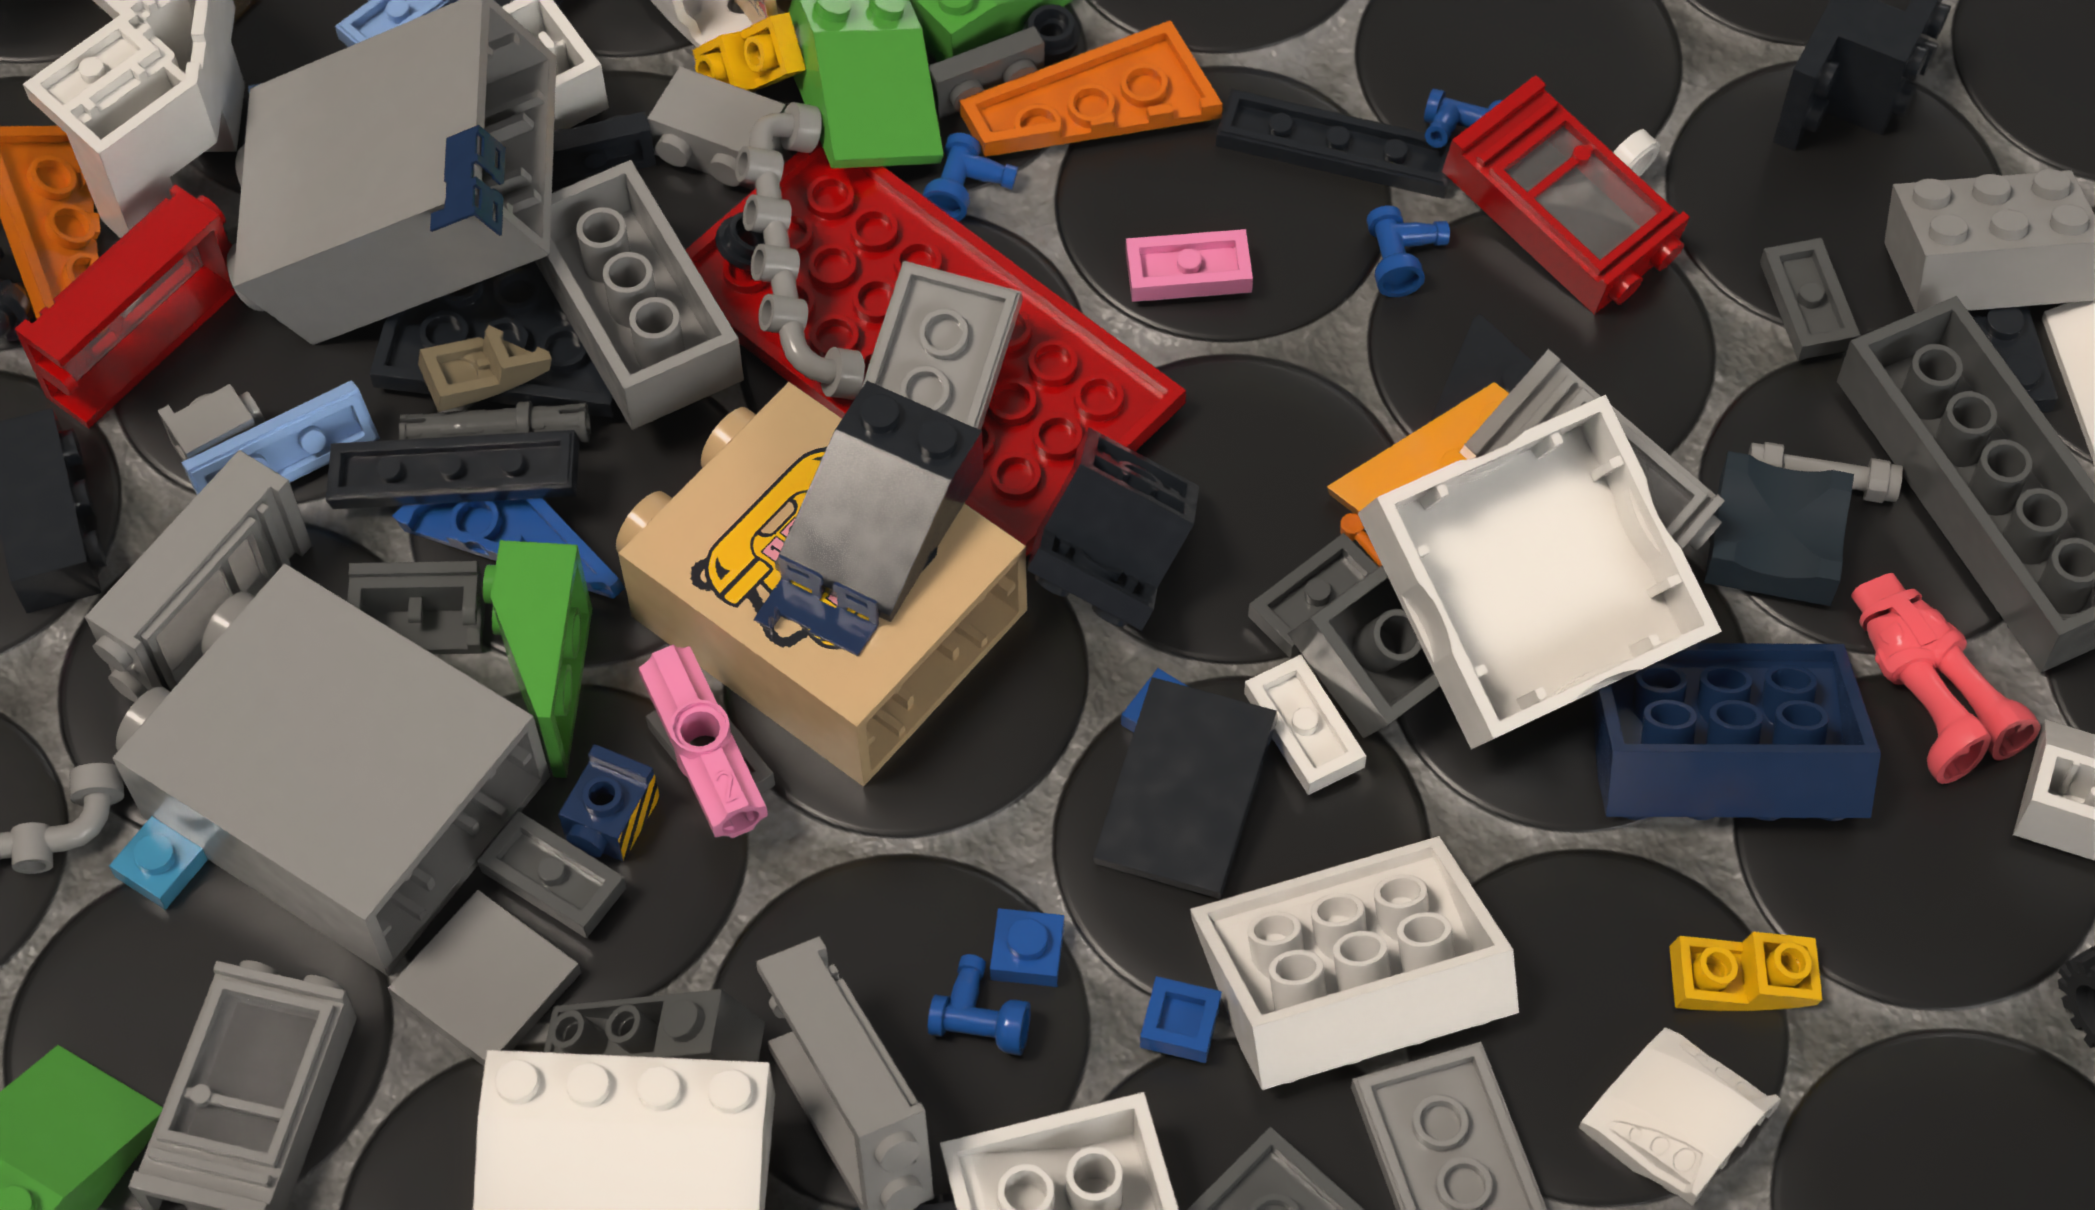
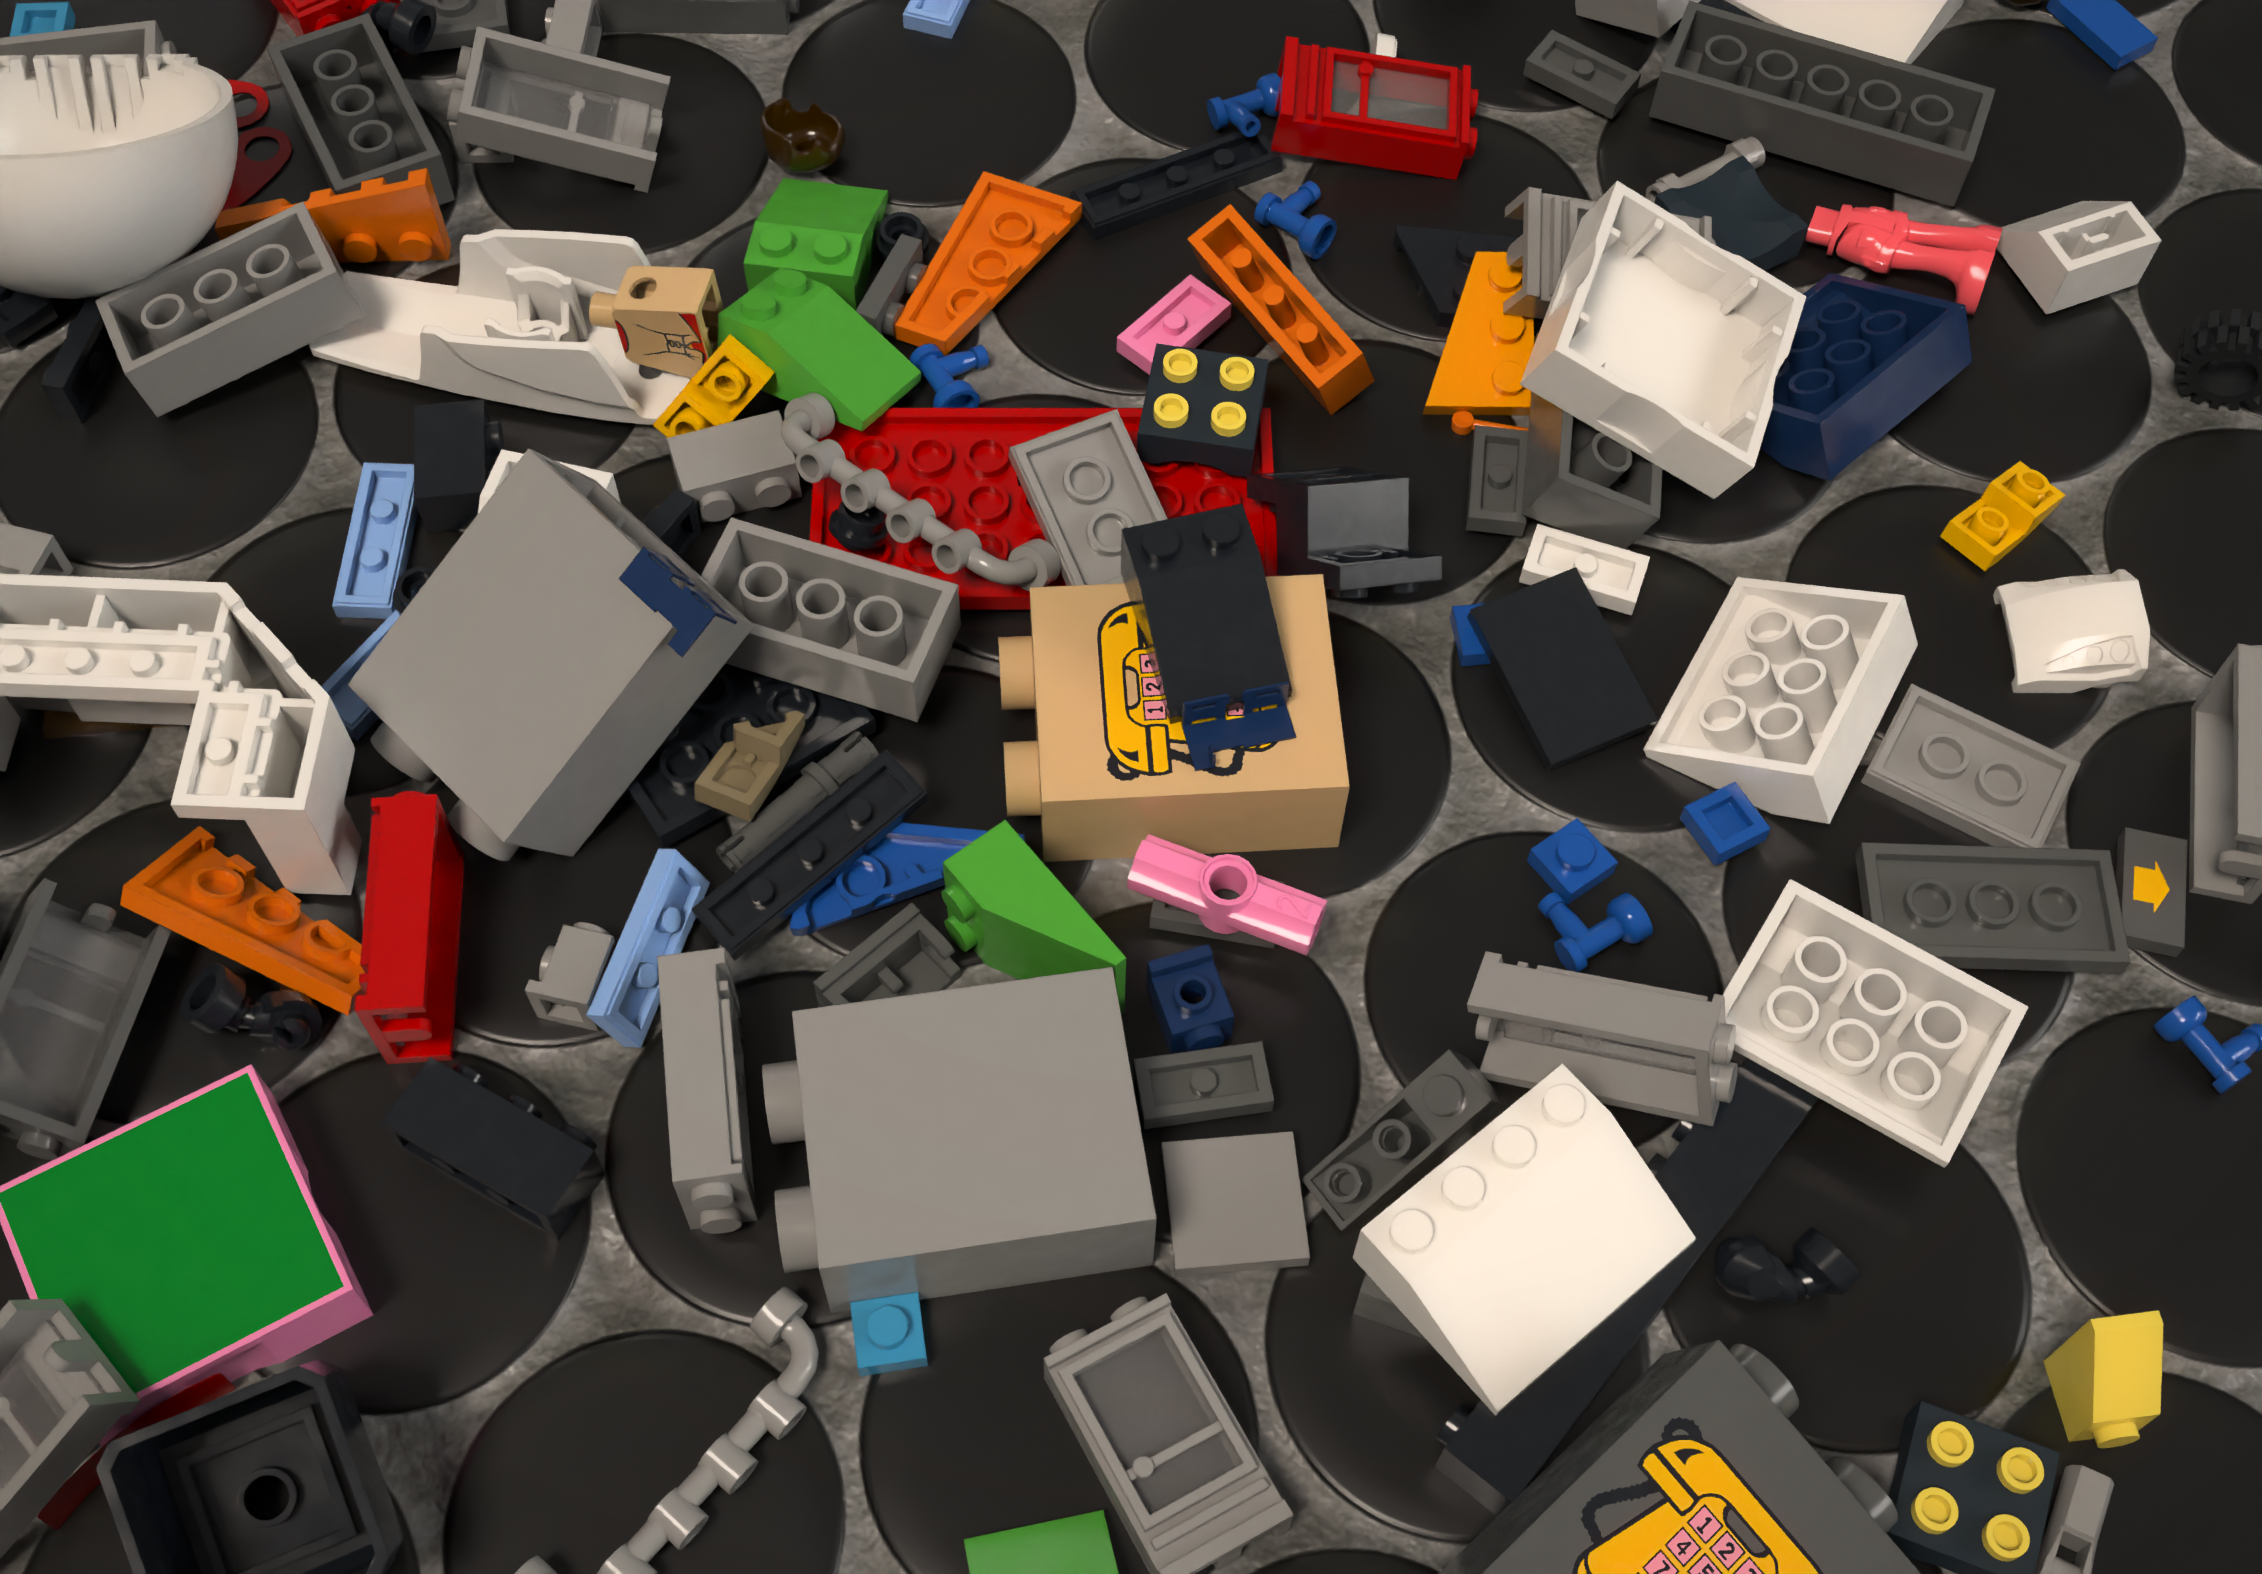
camera: 45 degrees left, 0 degrees up
(1114, 346) = (1202, 408): none -> black brick
(1280, 313) = (1281, 309): none -> orange brick

